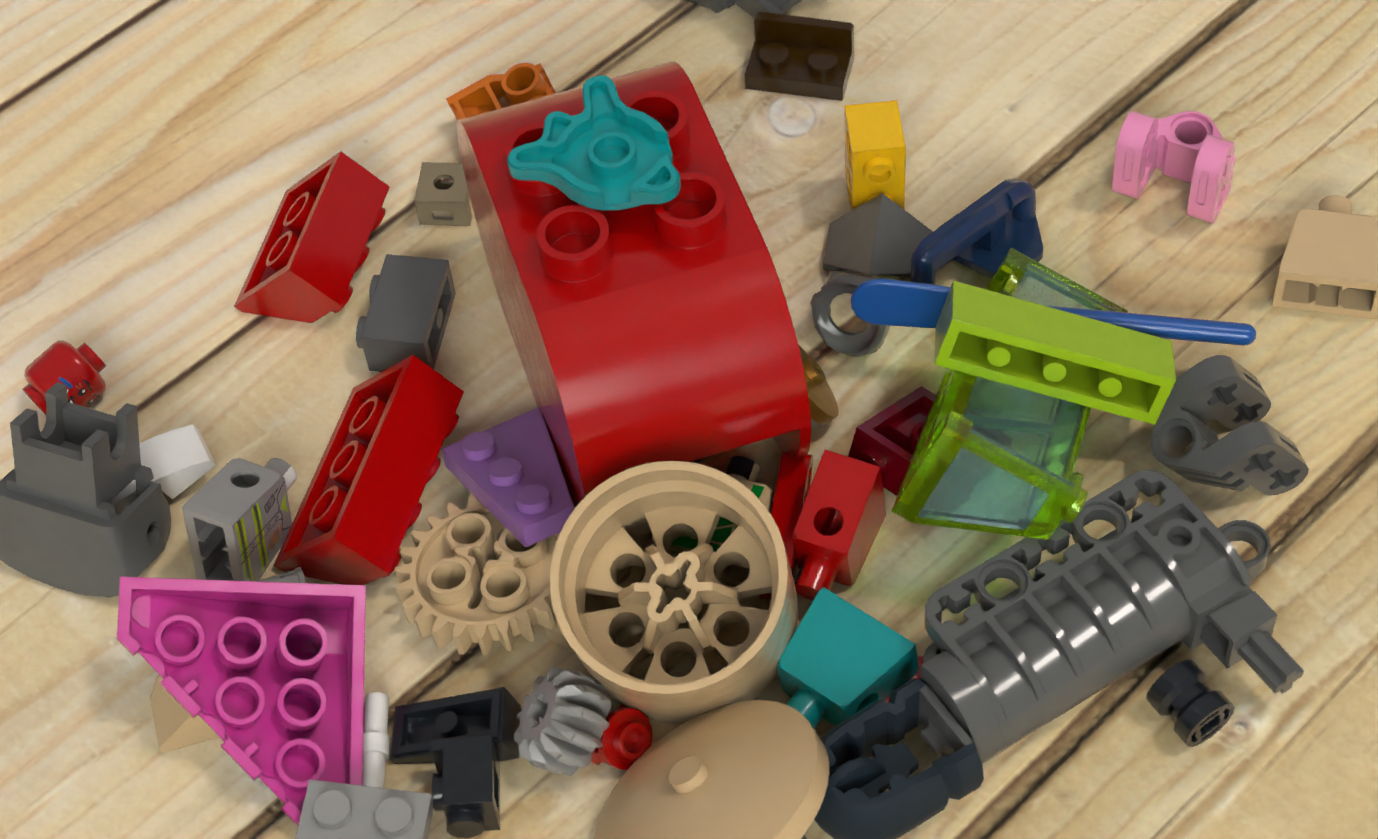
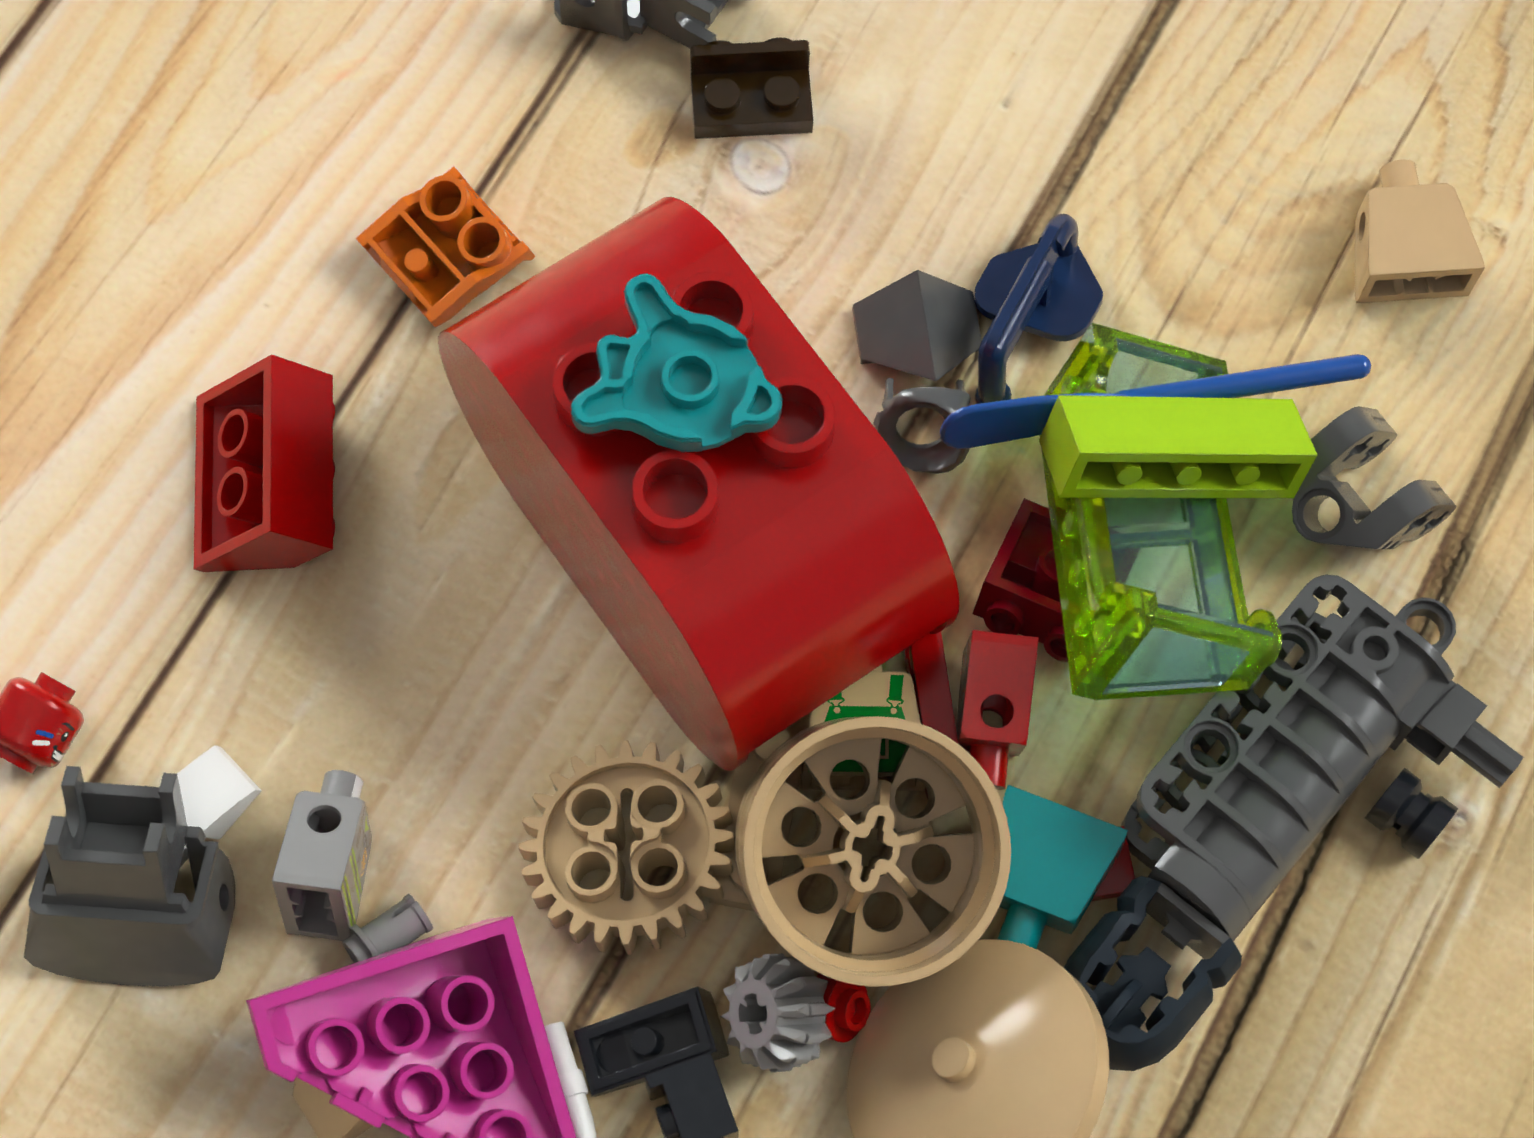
camera: 25 degrees left, 15 degrees up
(372, 476) = (447, 759): red slope -> none
(406, 311) = (412, 540): dark grey brick -> none
(452, 199) = (386, 378): dark tan piece -> none
(515, 476) = (620, 724): medium lavender wing -> none
(874, 152) = (892, 222): yellow brick -> none
(1183, 148) = (1252, 139): bright pink piece -> none

